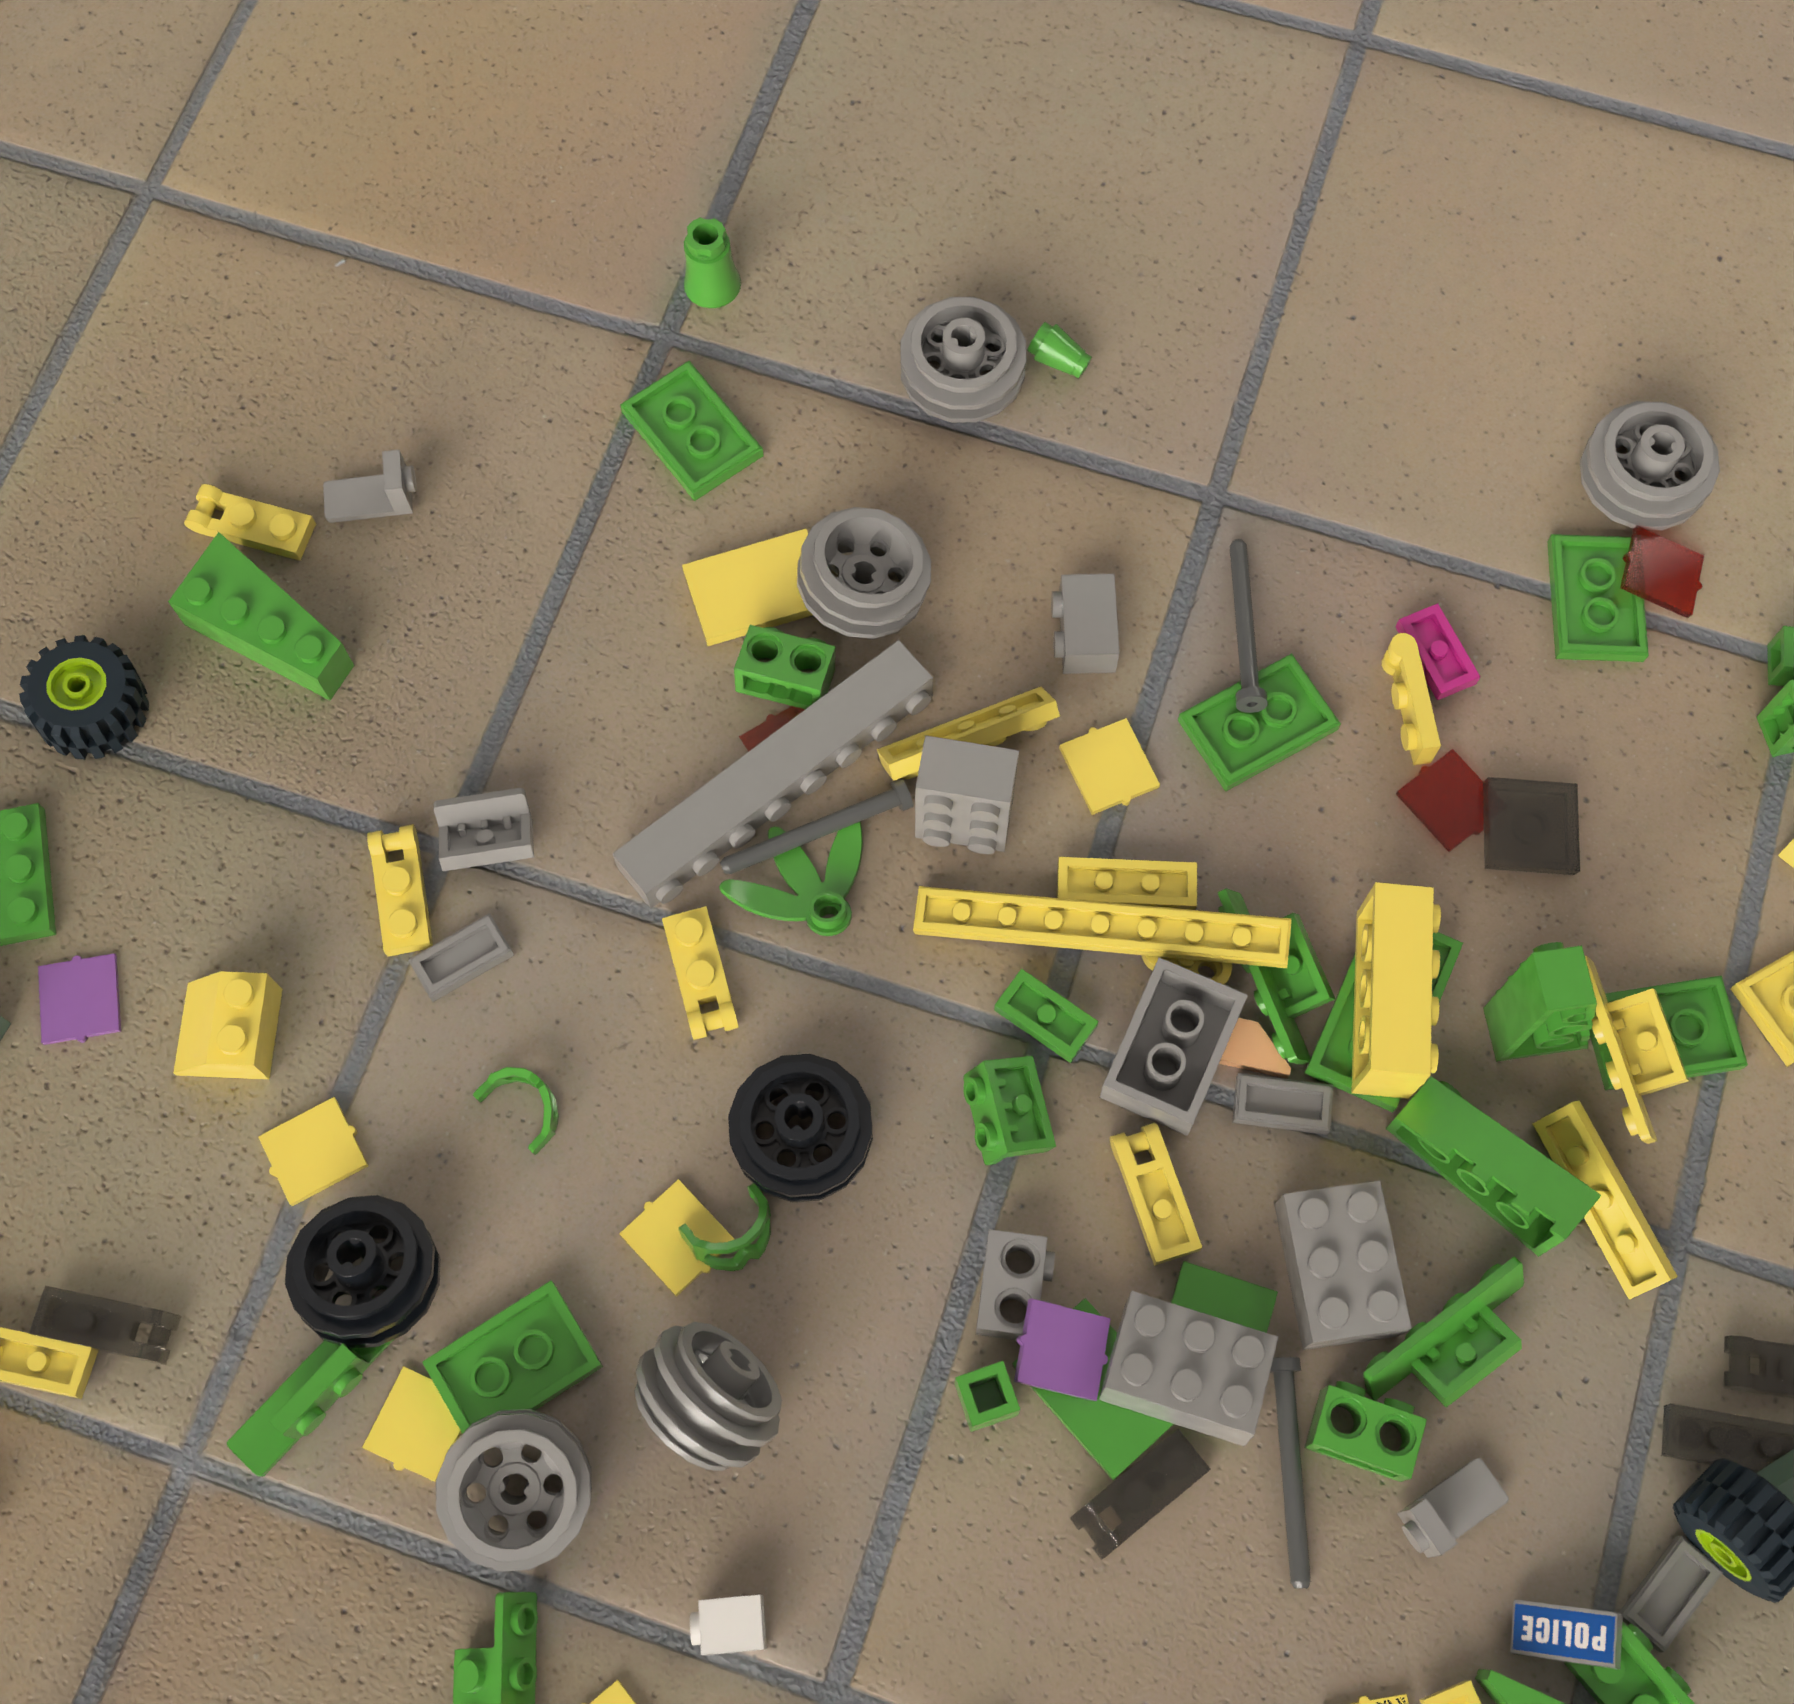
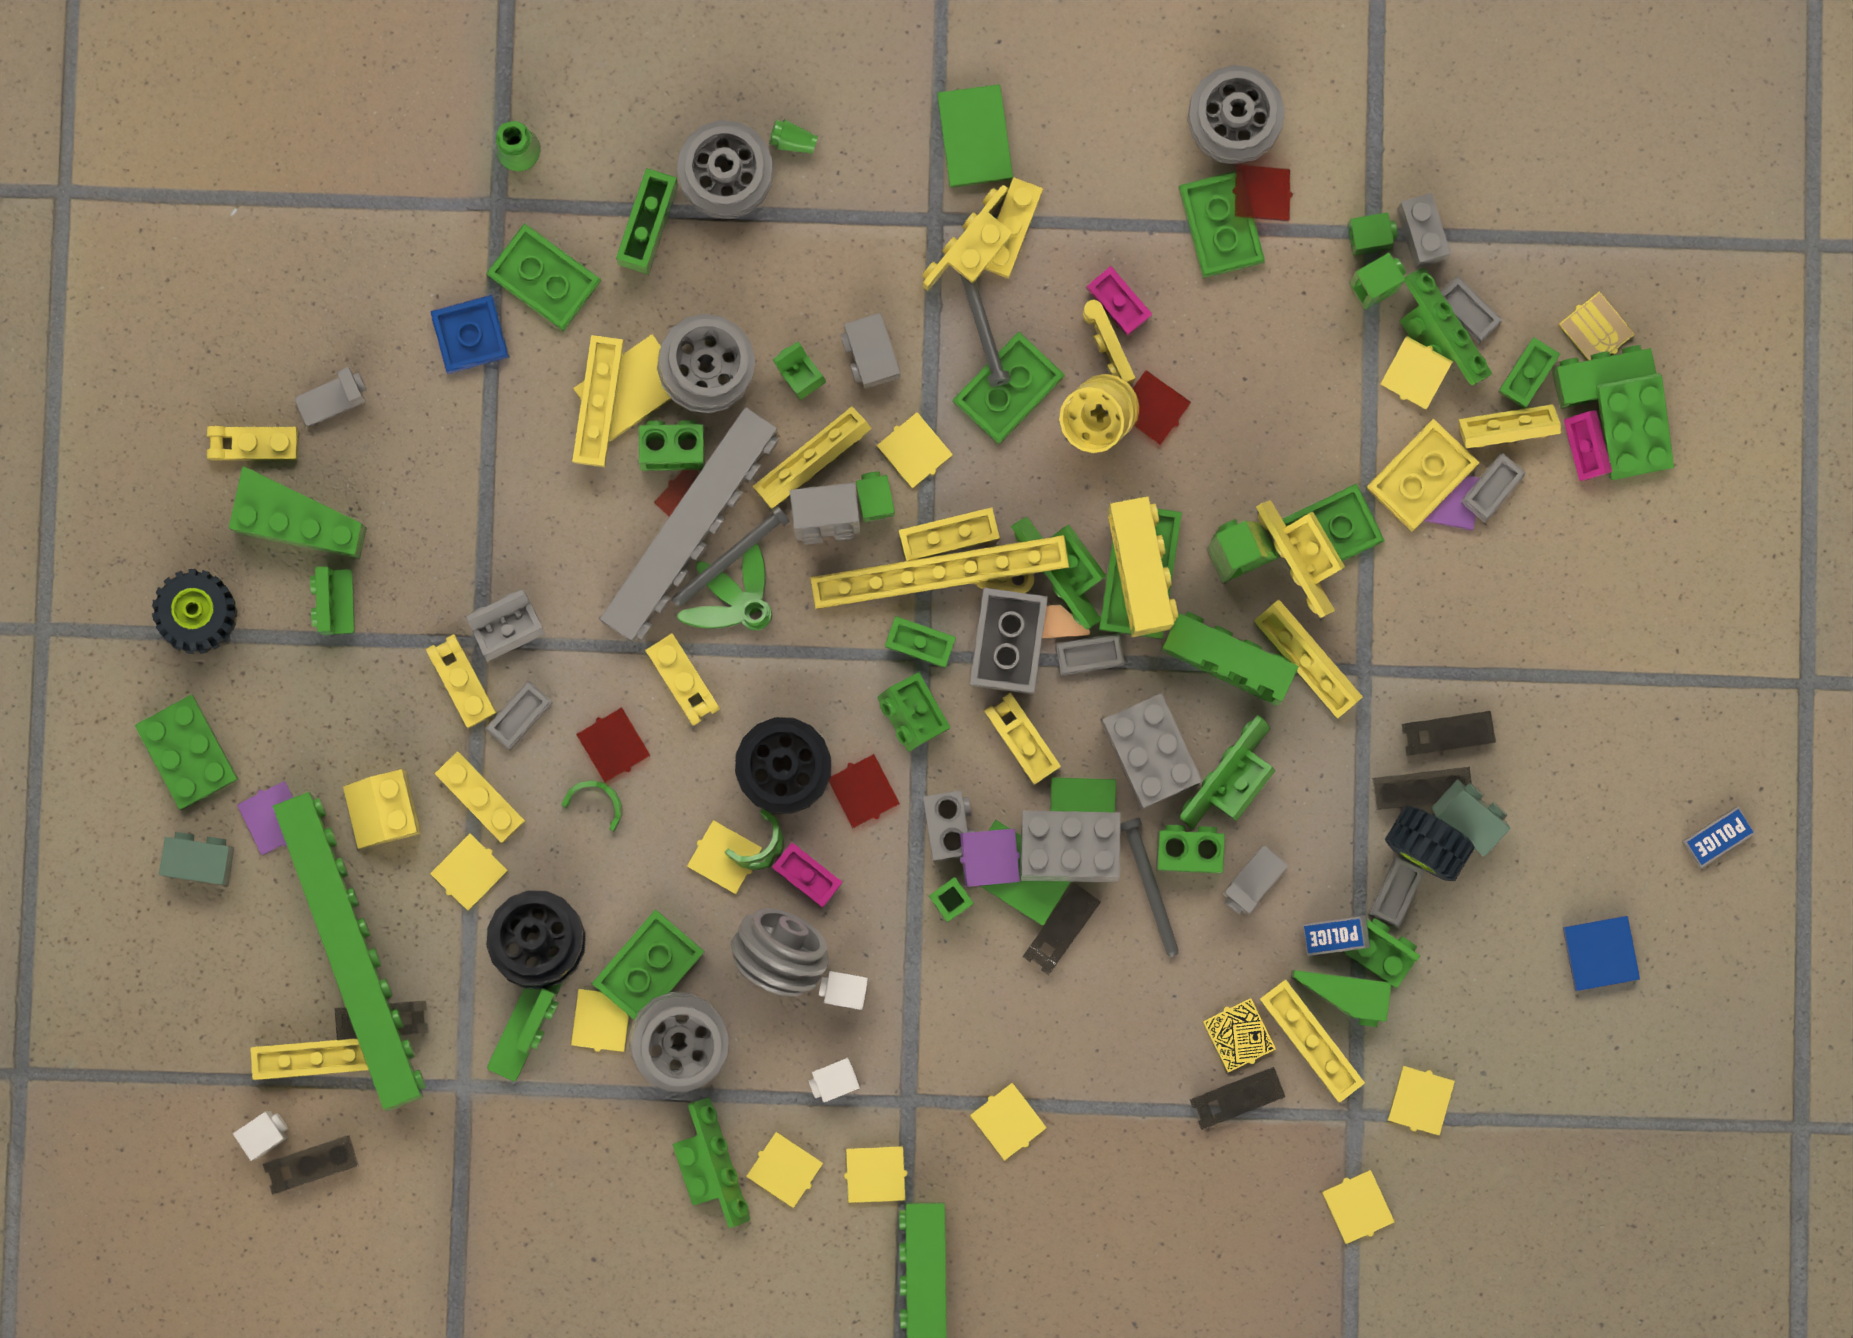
camera: 20 degrees left, 15 degrees up
(95, 1219) = (349, 951): none -> bright green brick
(268, 735) = (333, 601): none -> bright green bracket
(366, 1052) = (480, 797): none -> light yellow plate
(573, 470) = (469, 334): none -> blue tile
(575, 1035) = (613, 744): none -> clear red piece
(706, 584) = (598, 401): none -> light yellow plate
(787, 1297) = (807, 874): none -> dark pink plate
(787, 1487) = (844, 990): none -> white brick
(843, 391) = (647, 221): none -> bright green brick
(905, 1202) = (863, 791): none -> clear red piece
(983, 619) = (798, 370): none -> bright green bracket
(1038, 806) = (875, 496): none -> bright green brick
(1261, 532) = (976, 246): none -> light yellow bracket
(1294, 411) = (975, 136): none -> bright green tile
(1313, 529) = (1015, 215): none -> light yellow plate
(1354, 771) = (1088, 424): none -> light yellow wheel
(1531, 826) = (1210, 413): clear smoke tile -> none

